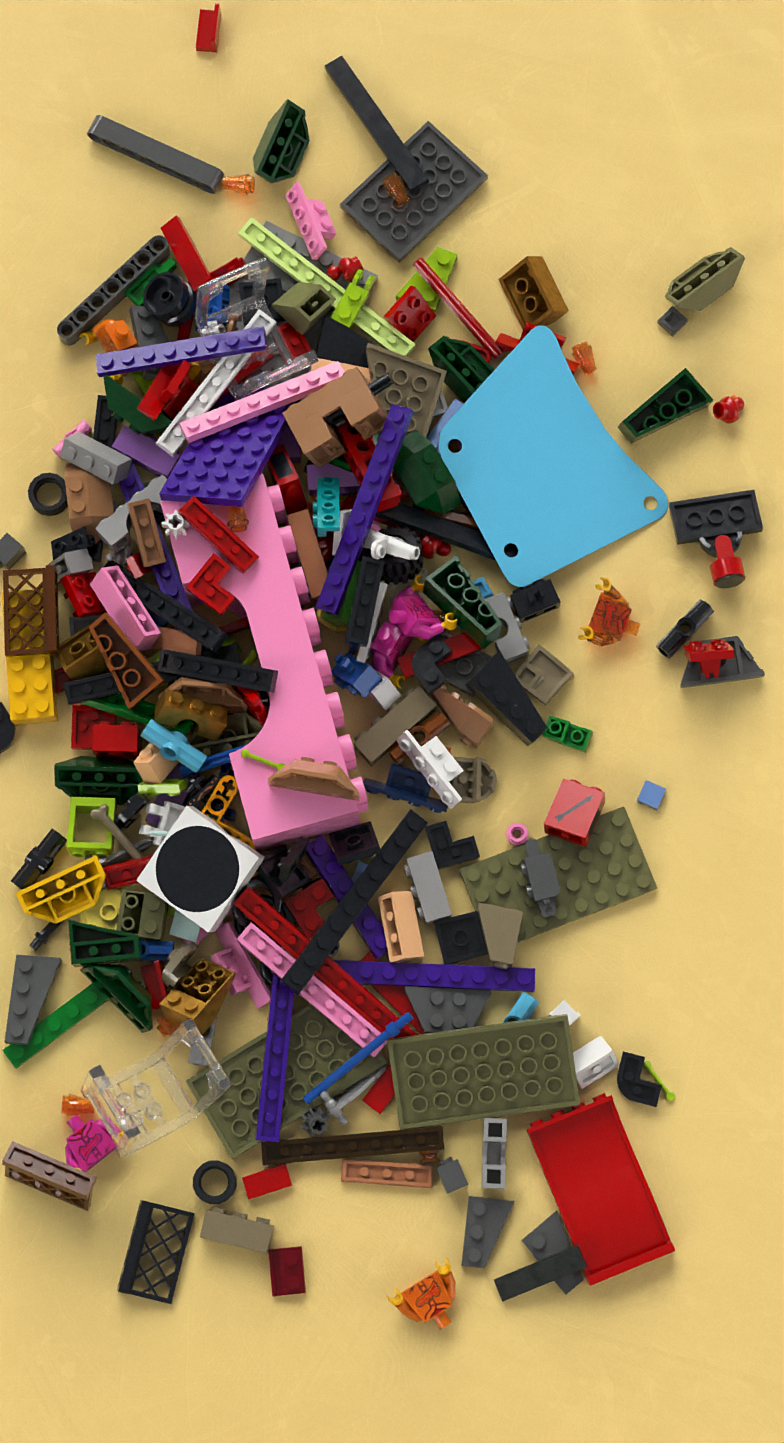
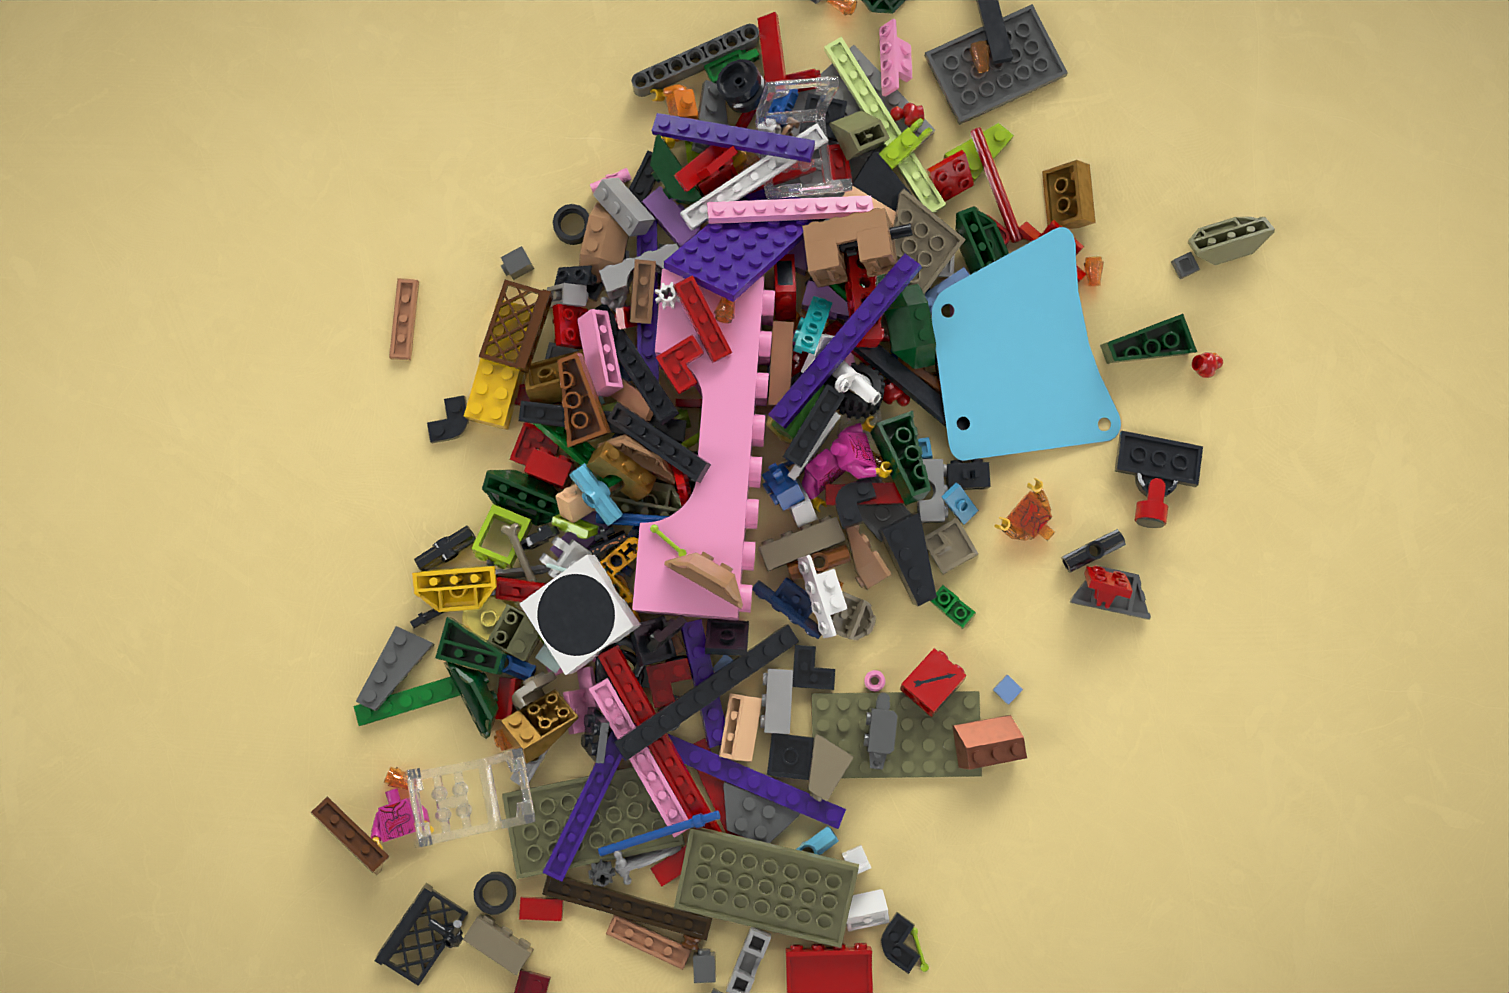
camera: 20 degrees right, 5 degrees up
(186, 1239) = (451, 935): none -> black piece
(258, 984) = (595, 734): none -> black plate
(536, 629) = (960, 503): none -> dark azure plate
(650, 851) = (988, 742): none -> copper slope

